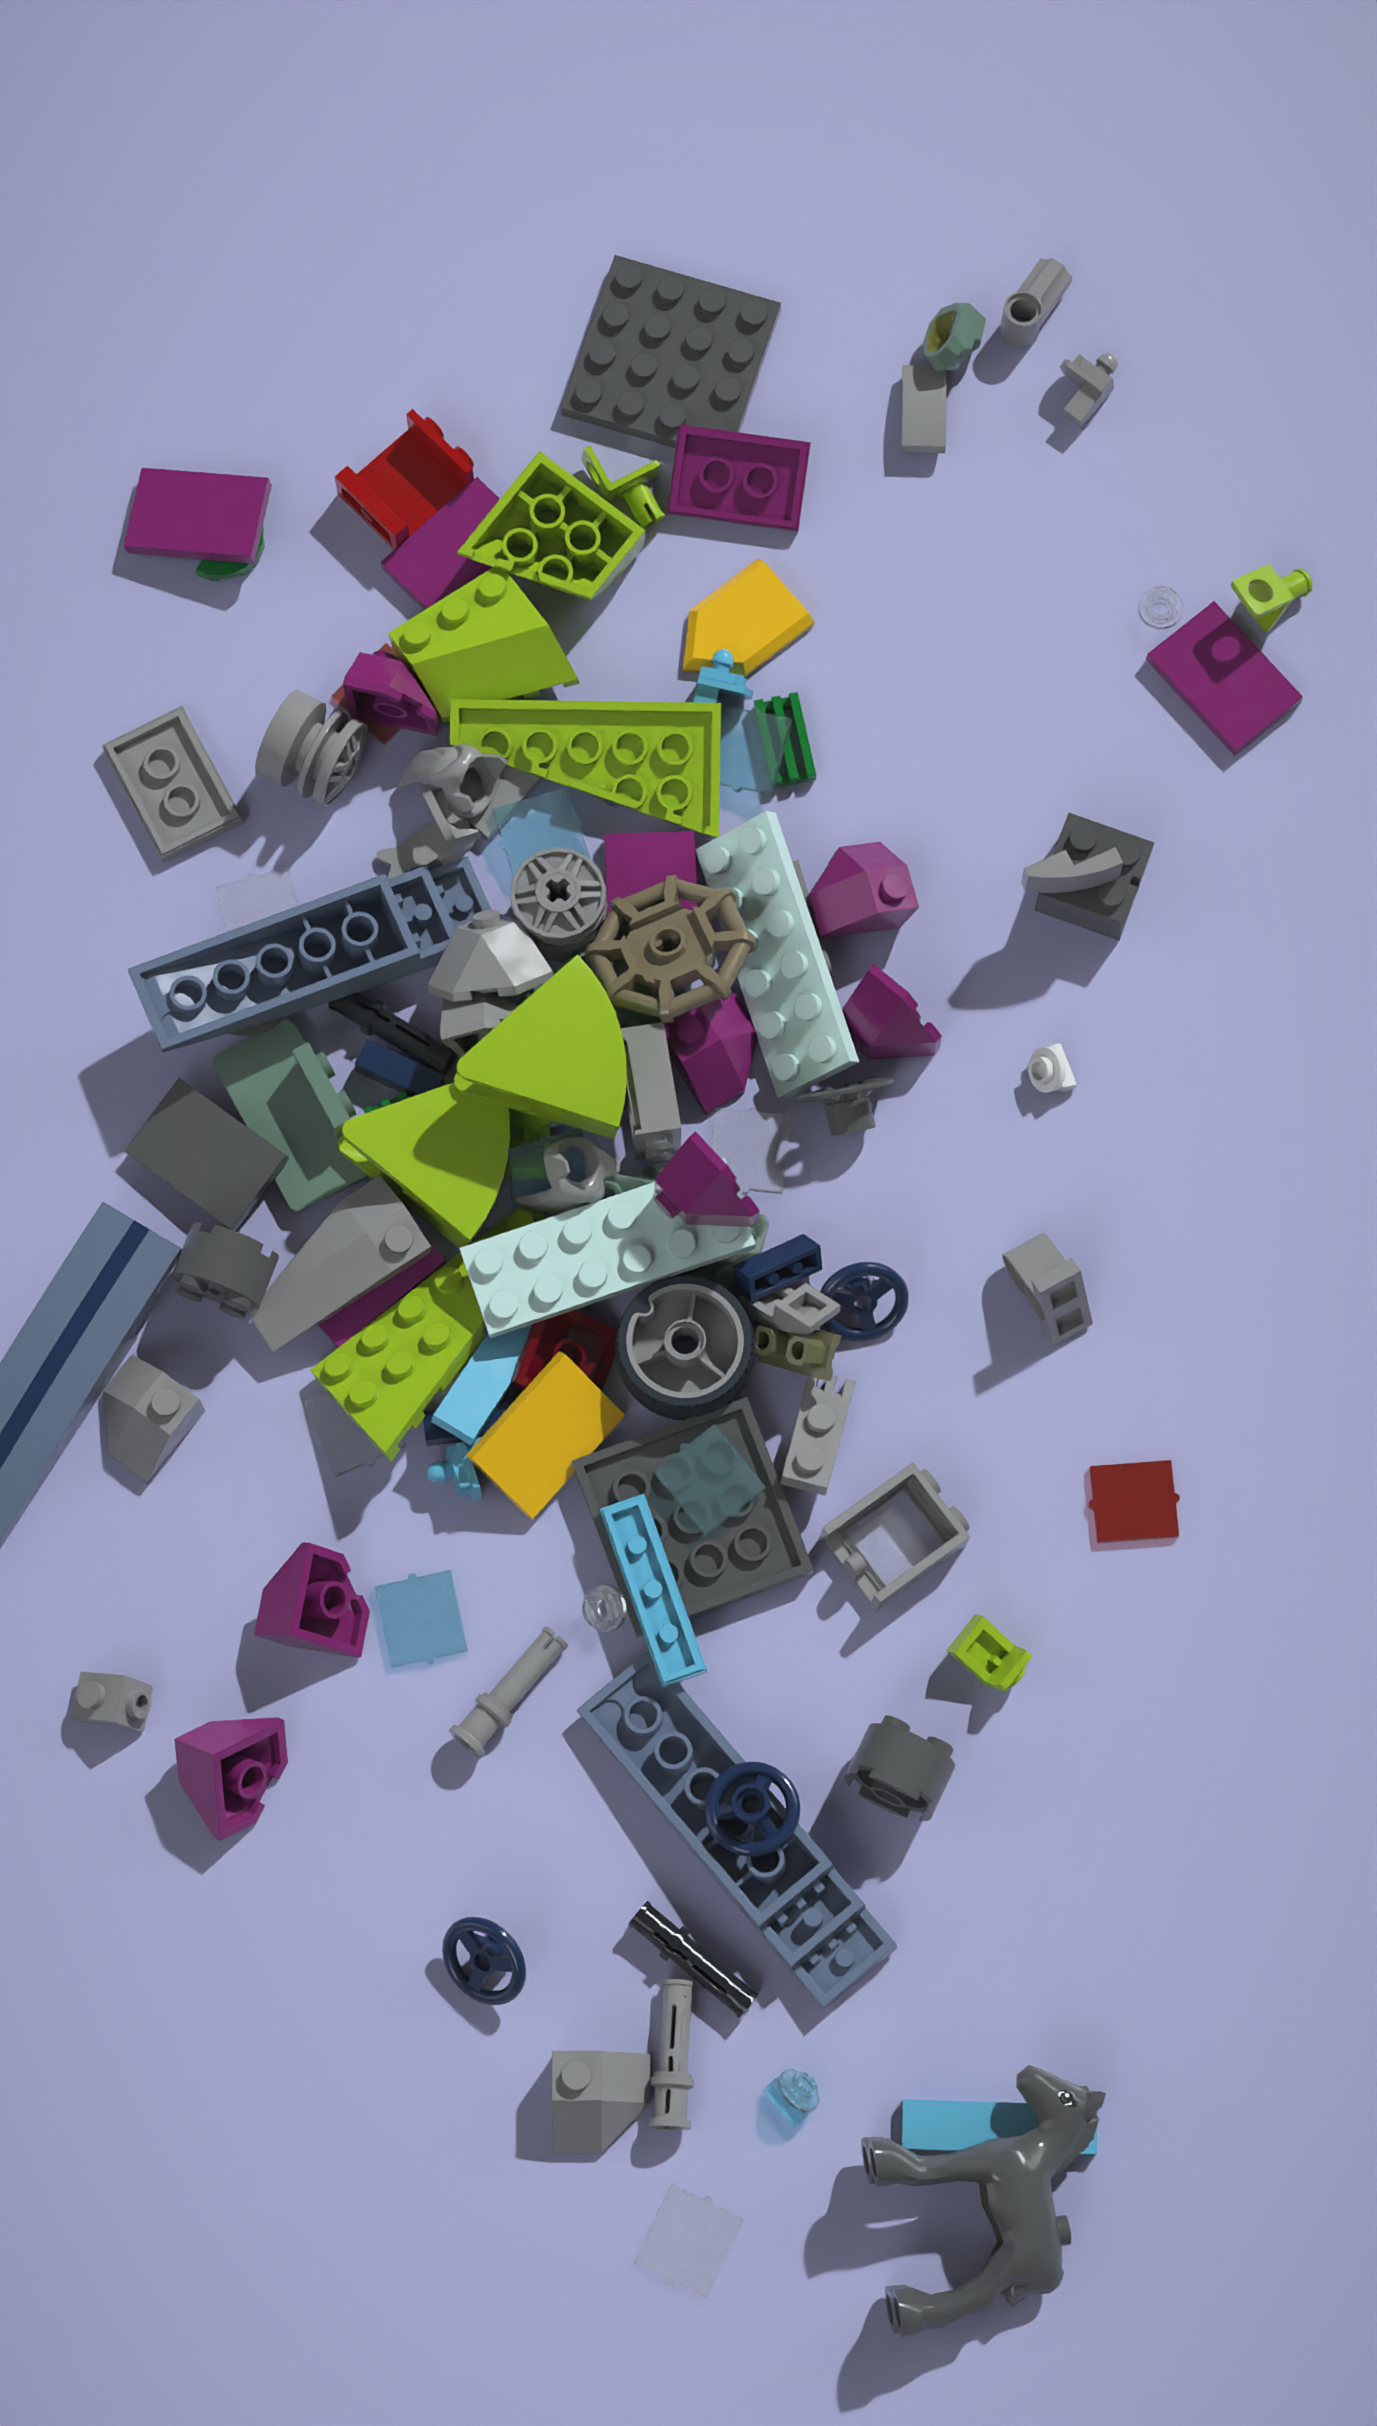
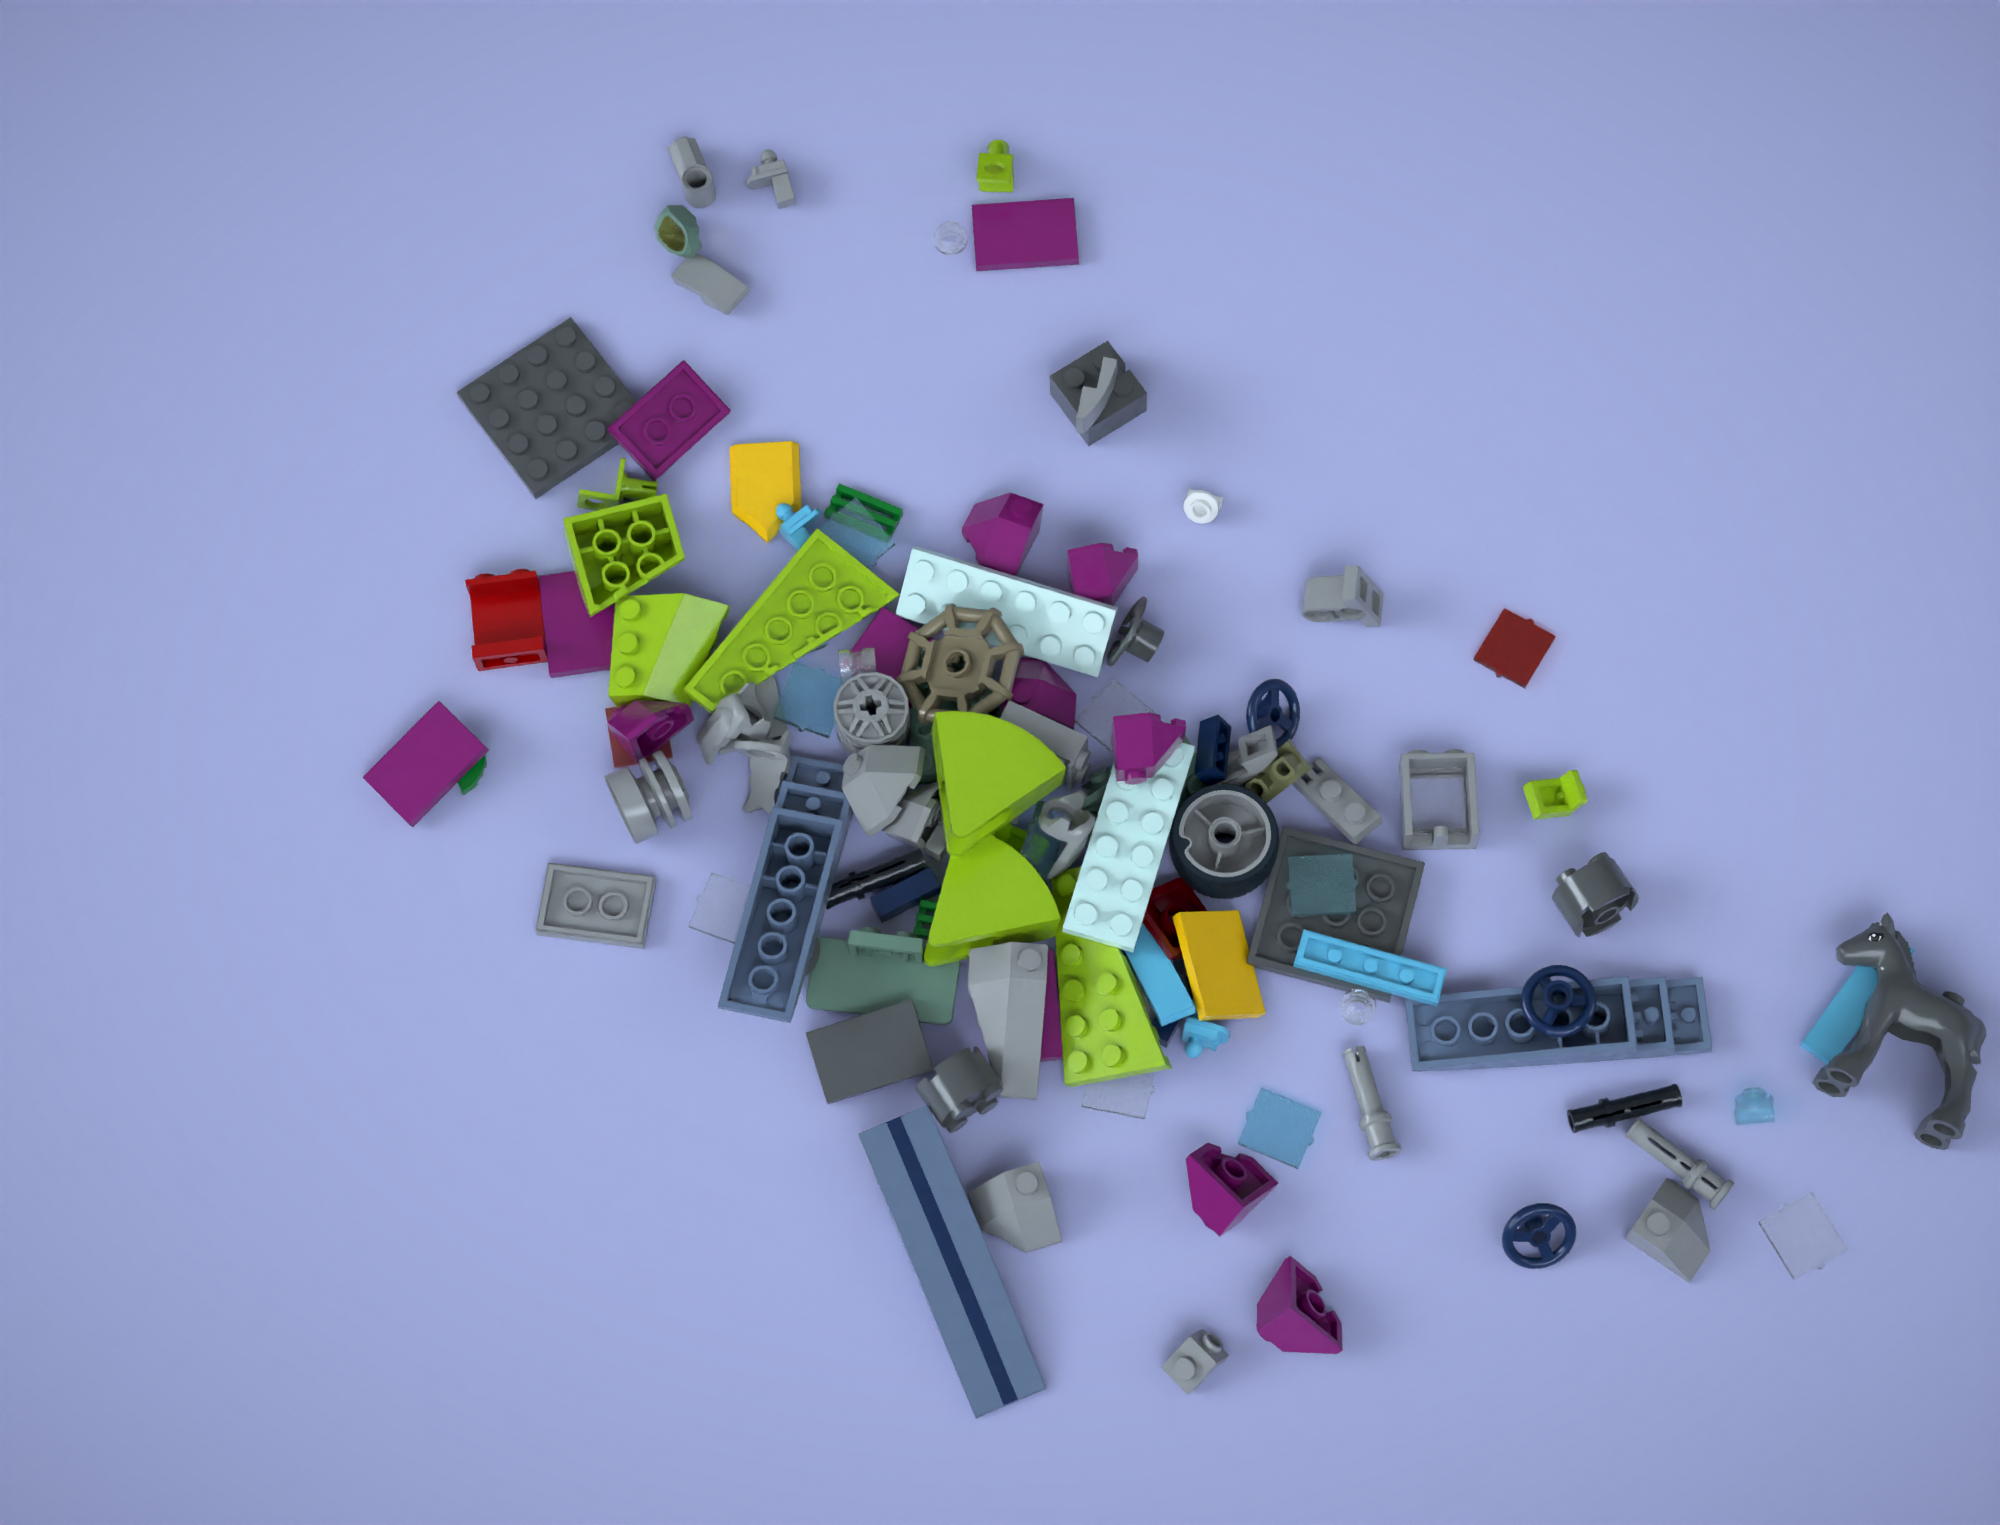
camera: 50 degrees left, 5 degrees down
(605, 849) = (855, 663): none -> clear wheel

